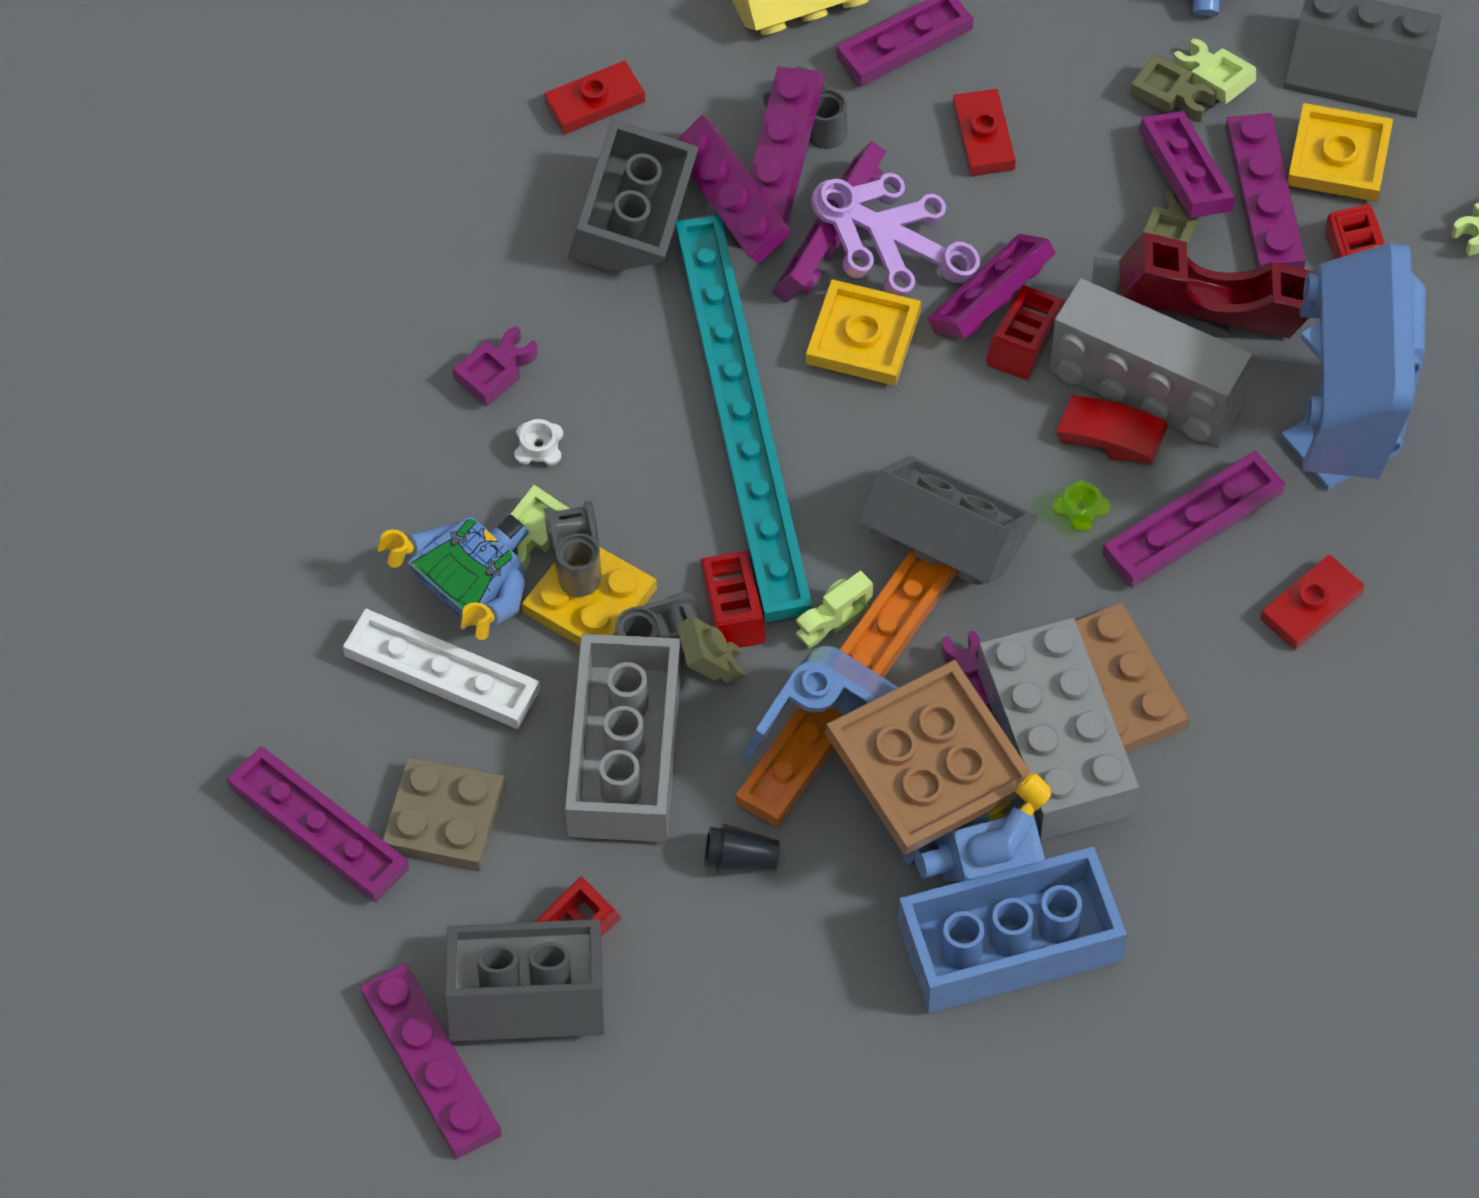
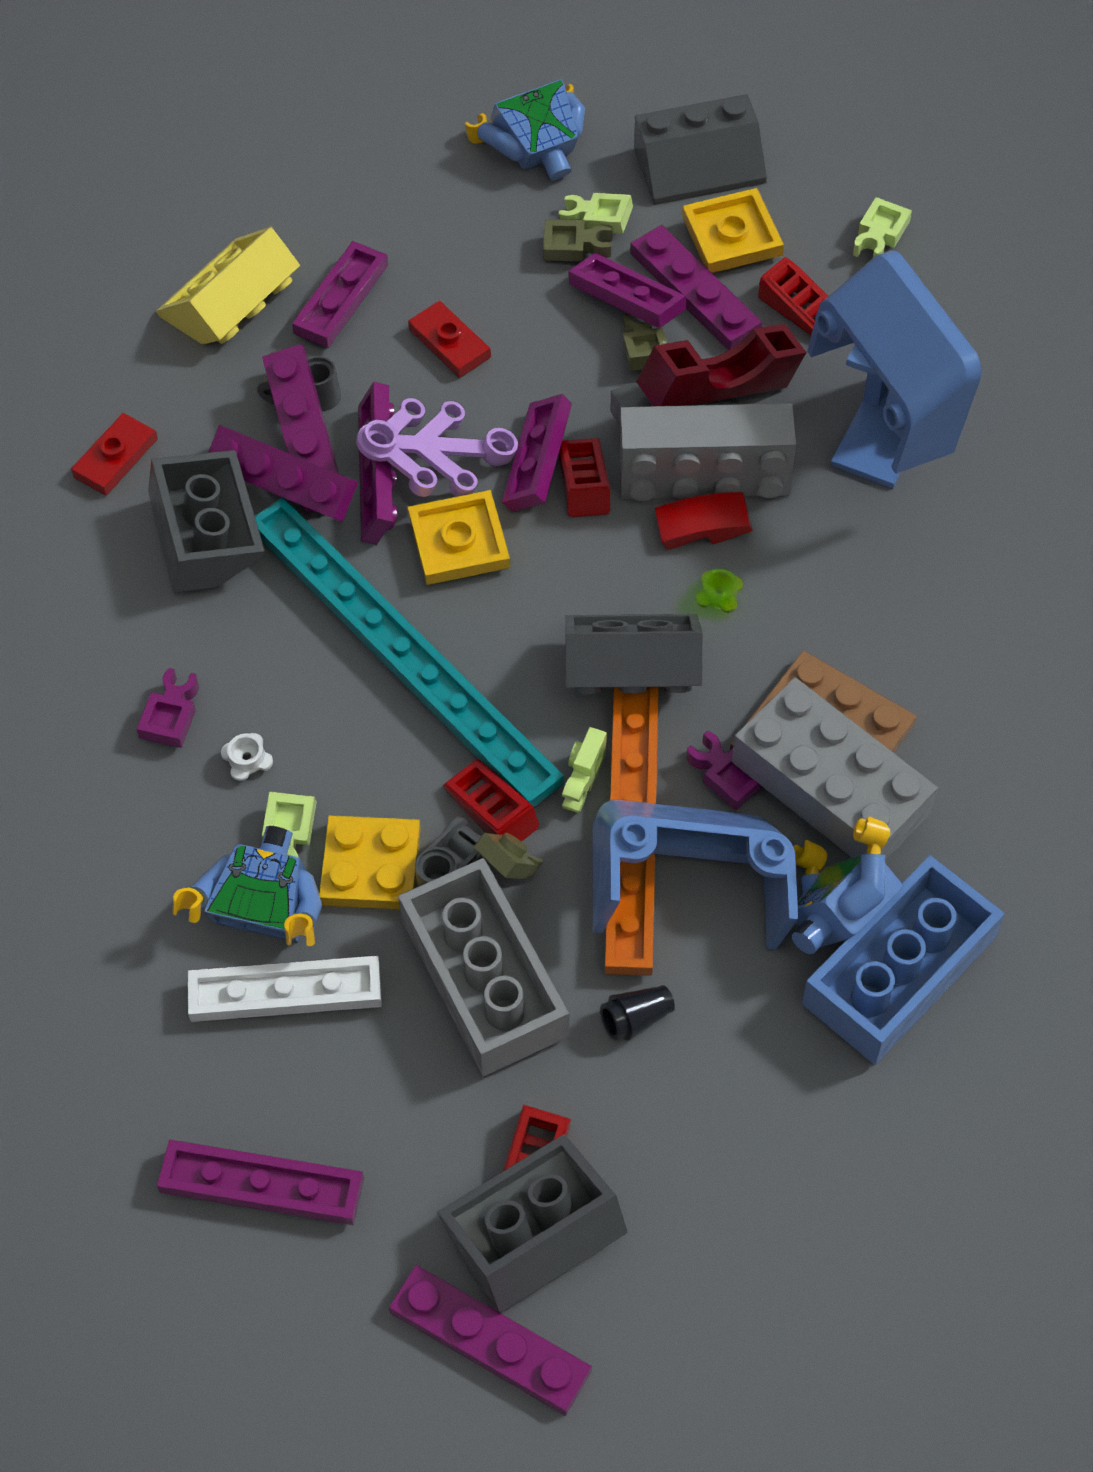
camera: 30 degrees left, 0 degrees up
(444, 813) = (364, 1113): dark tan plate -> none
(575, 541) = (337, 818): dark grey piece -> none
(928, 756) = (765, 849): medium nougat plate -> none
(1193, 519) = (812, 559): magenta plate -> none
(1312, 602) = (943, 578): red plate -> none

